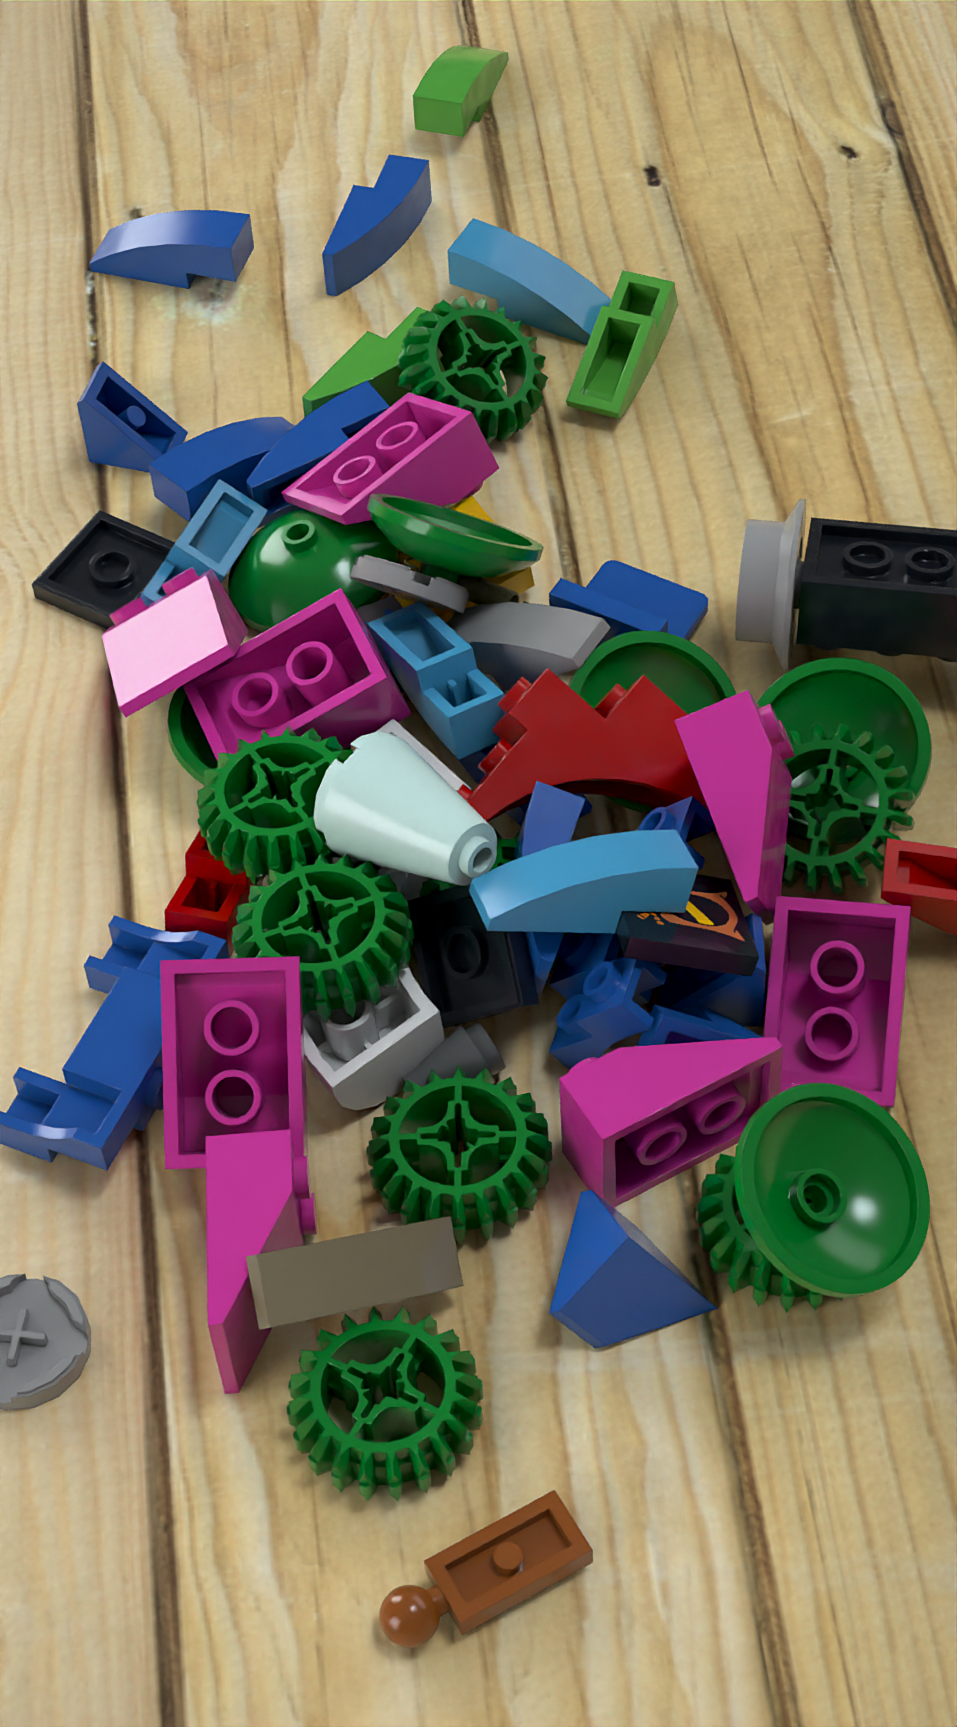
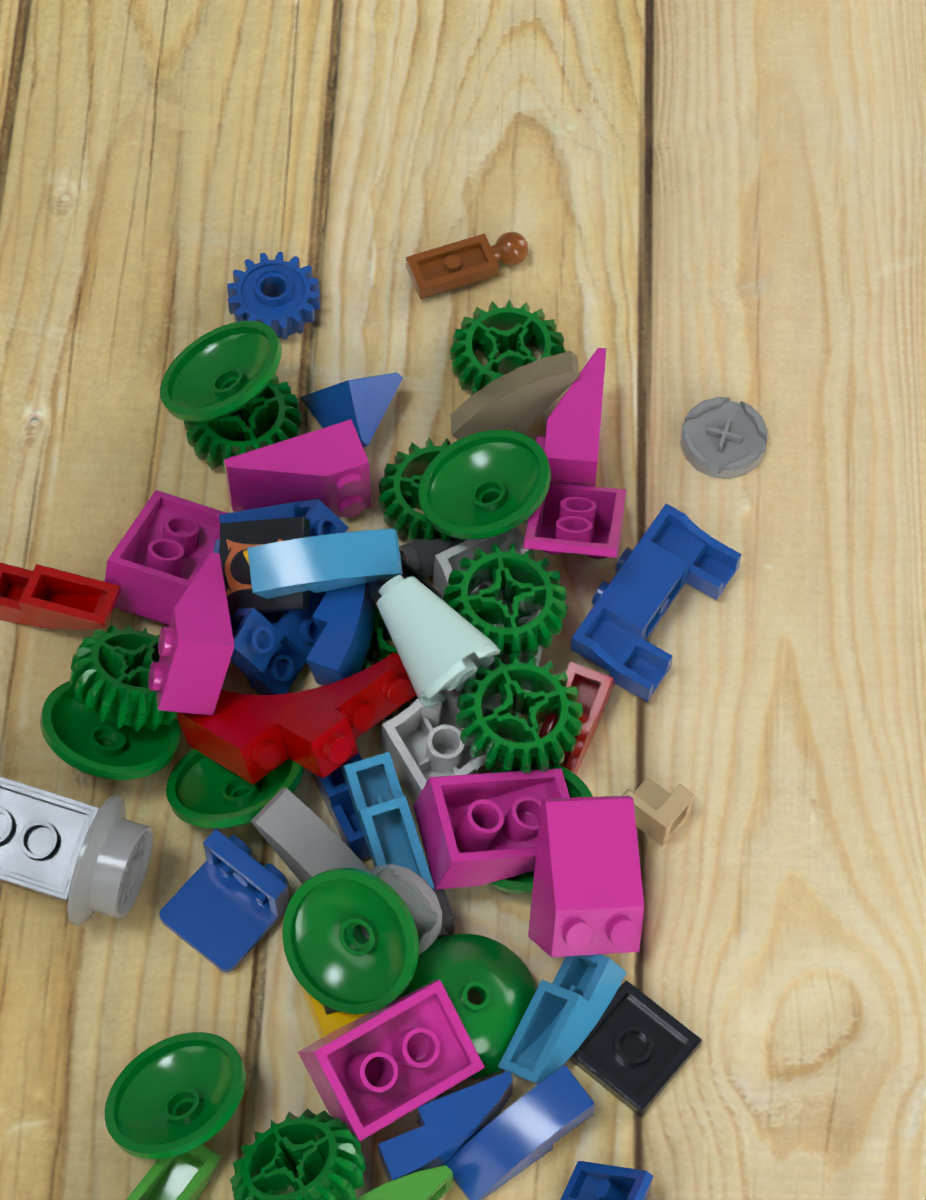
camera: 175 degrees left, 10 degrees up
(98, 802) = (659, 811): none -> tan panel
(400, 1060) = (484, 484): none -> green dish
(644, 400) = (175, 1095): none -> green dish
(797, 1479) = (275, 294): none -> blue gear

